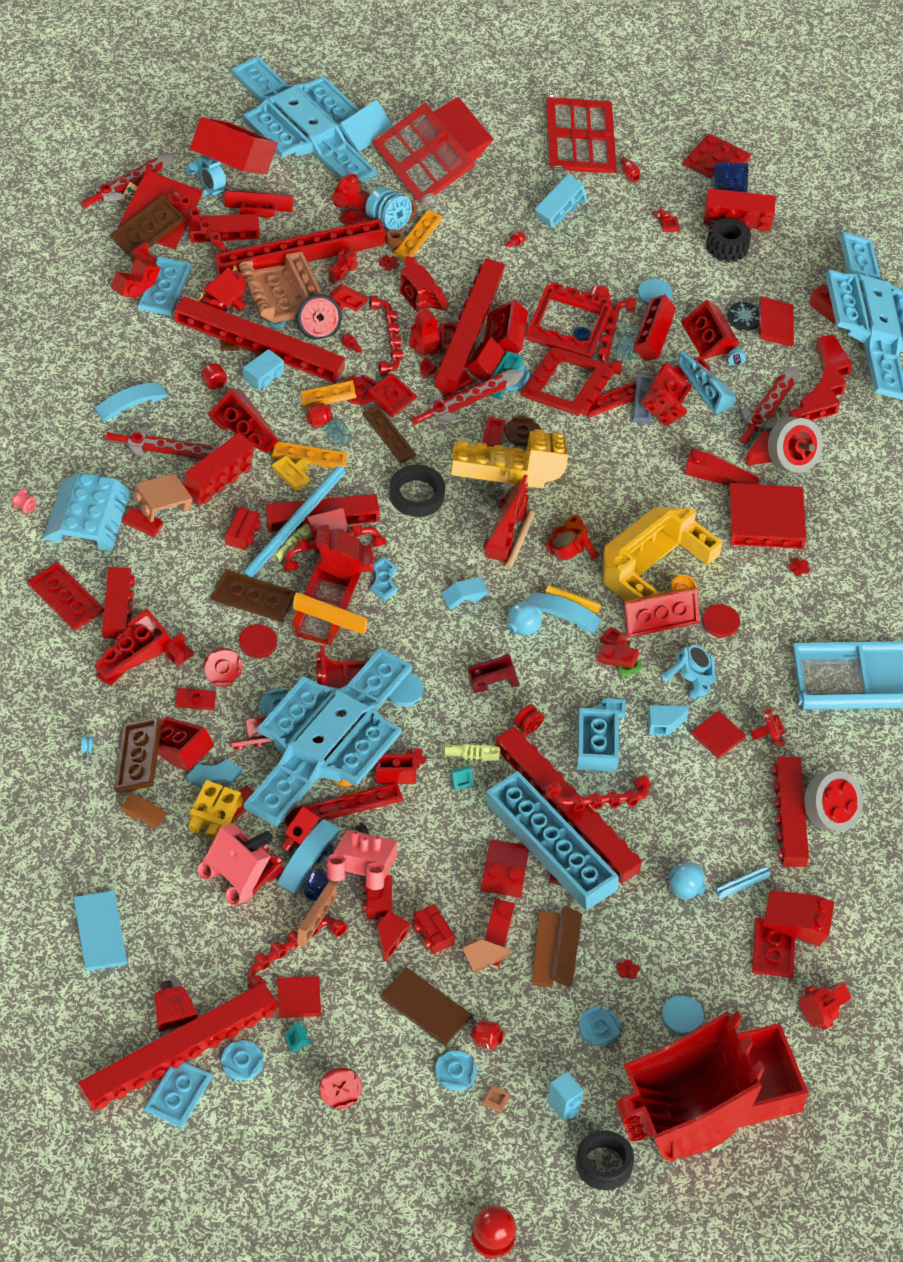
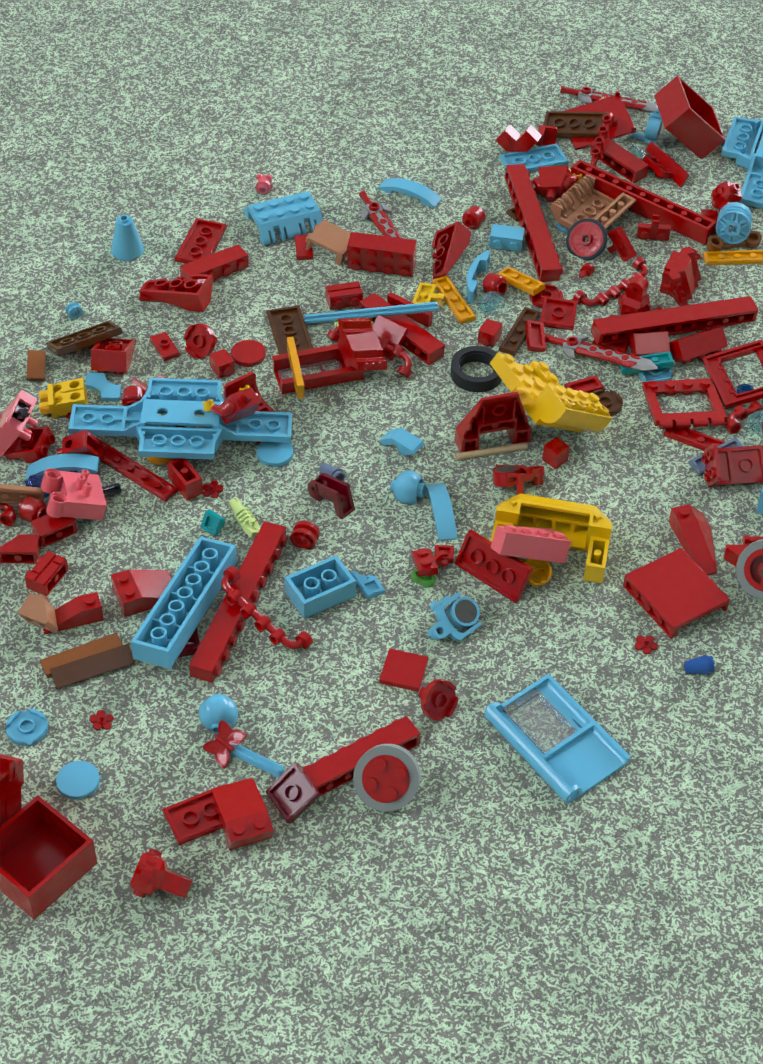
camera: 60 degrees right, 5 degrees down
(23, 652) = (126, 240): none -> medium azure cone
(177, 650) = (200, 314): red panel -> none
(227, 208) = (638, 151): none -> clear light blue piece
(256, 757) = (132, 395): none -> red head
(262, 667) = (222, 363): none -> red brick
(297, 493) = (422, 318): none -> red tile
(308, 434) = (479, 264): none -> medium azure slope
(346, 902) = (32, 508): none -> red head
(361, 677) = (236, 405): none -> red torso
(379, 455) = (490, 332): none -> red brick
(383, 585) = (368, 394): medium azure tile -> none
(408, 427) = (535, 336): none -> red tile
(463, 662) = (332, 471): none -> sand blue cone
(562, 497) = (555, 452): none -> red brick
(589, 604) = (458, 504): yellow axle -> none
(665, 719) = (385, 624): medium azure slope -> none
(669, 569) = (531, 543): none -> coral wedge
(717, 891) = (222, 743): none -> red piece
(721, 620) = (531, 616): red tile -> none
(800, 872) = (293, 792): none -> tile
(846, 546) = (700, 665): none -> blue cone

